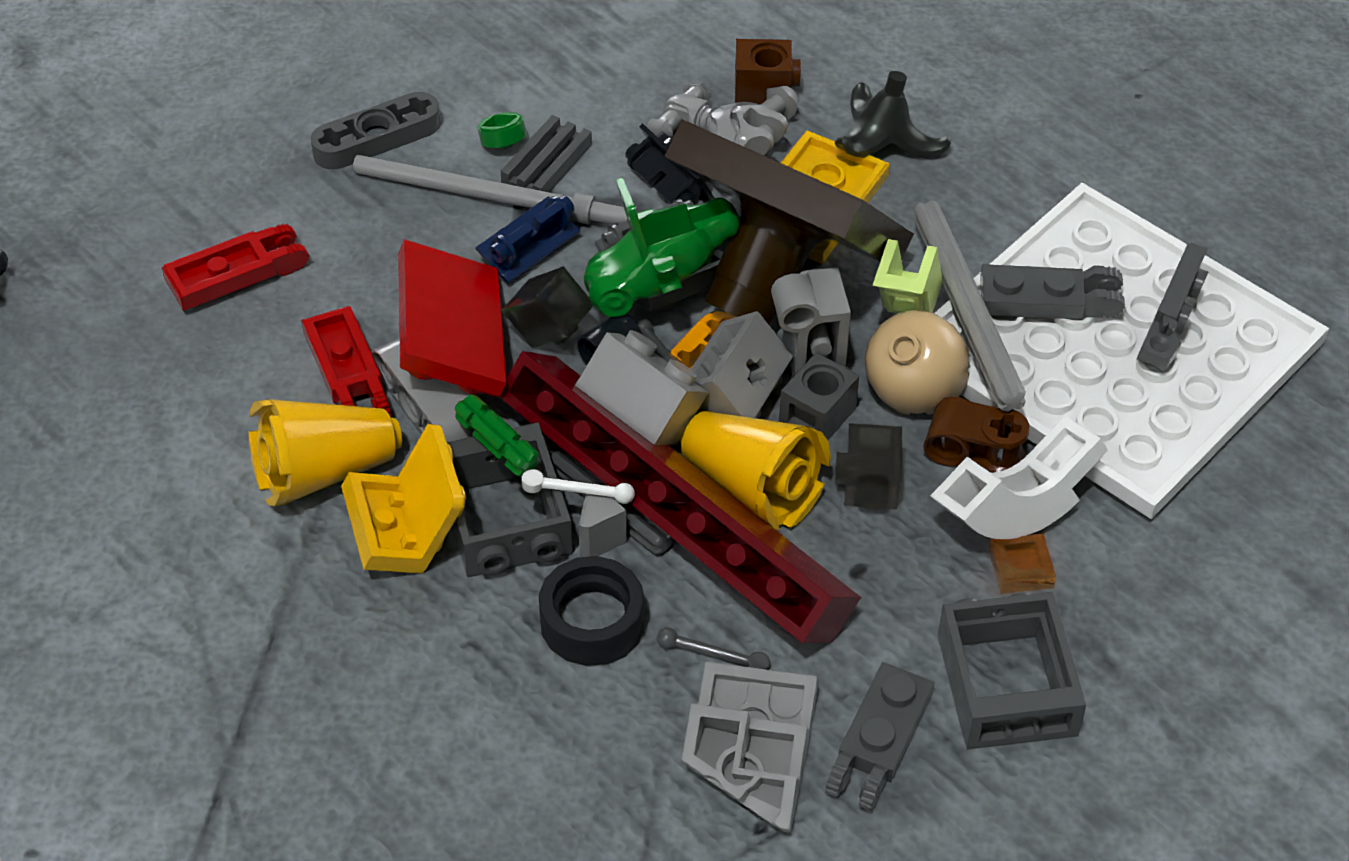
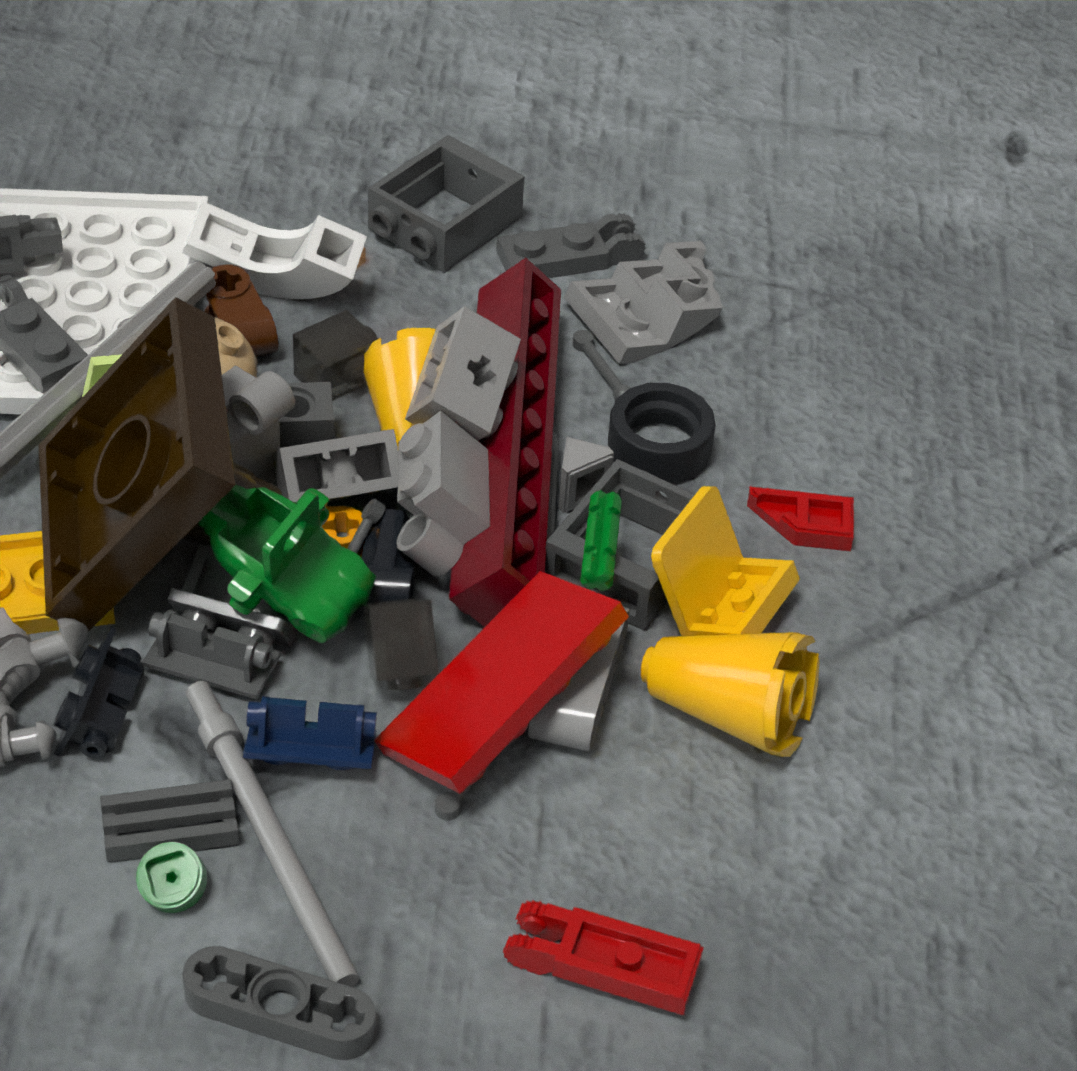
camera: 135 degrees left, 5 degrees down
(344, 358) = (614, 766): red hinge -> none
(421, 649) = (806, 517): none -> red tile
(534, 481) = (556, 443): white hinge -> none
(715, 441) = (466, 374): none -> light grey brick

